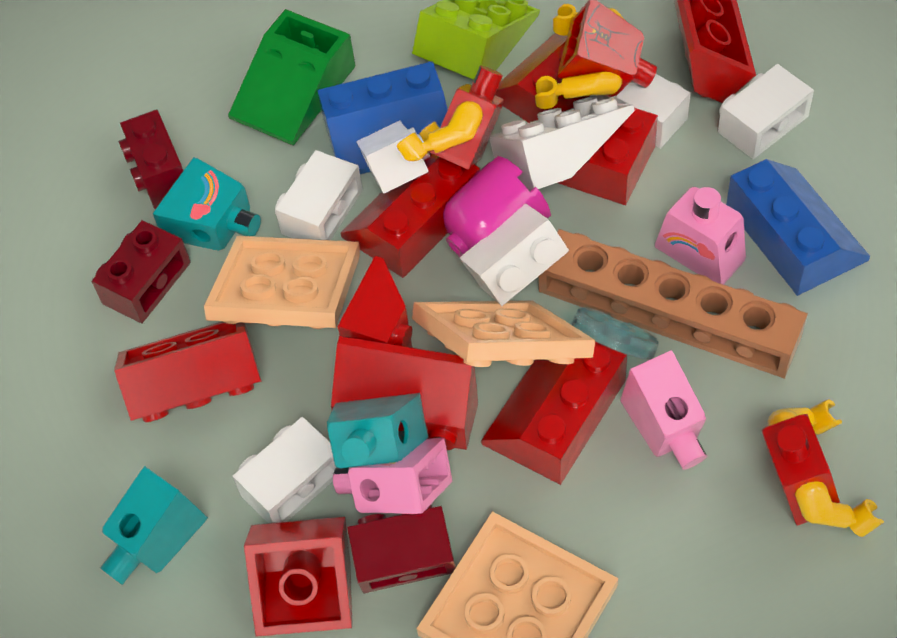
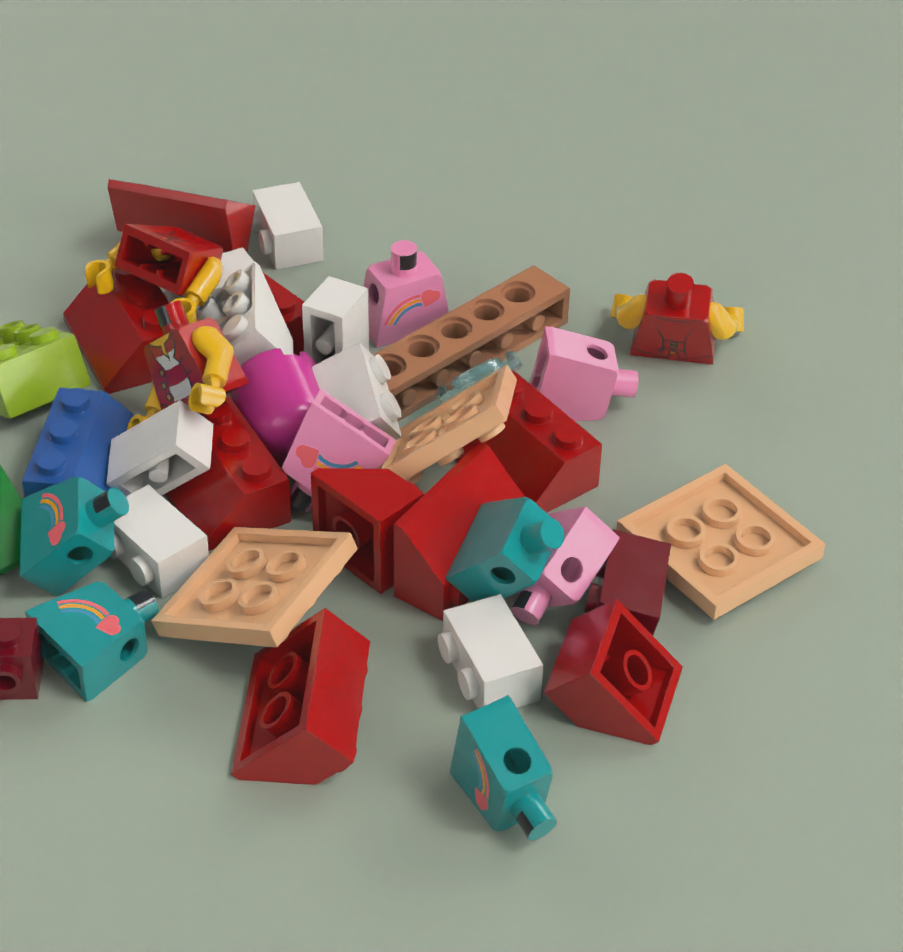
camera: 75 degrees left, 15 degrees down
(141, 271) = (140, 714): dark red brick -> none
(282, 141) = (67, 532): none -> teal torso
(441, 261) = (332, 439): none -> bright pink torso
(616, 203) = (335, 319): none -> white brick
(793, 225) = (456, 249): blue slope -> none

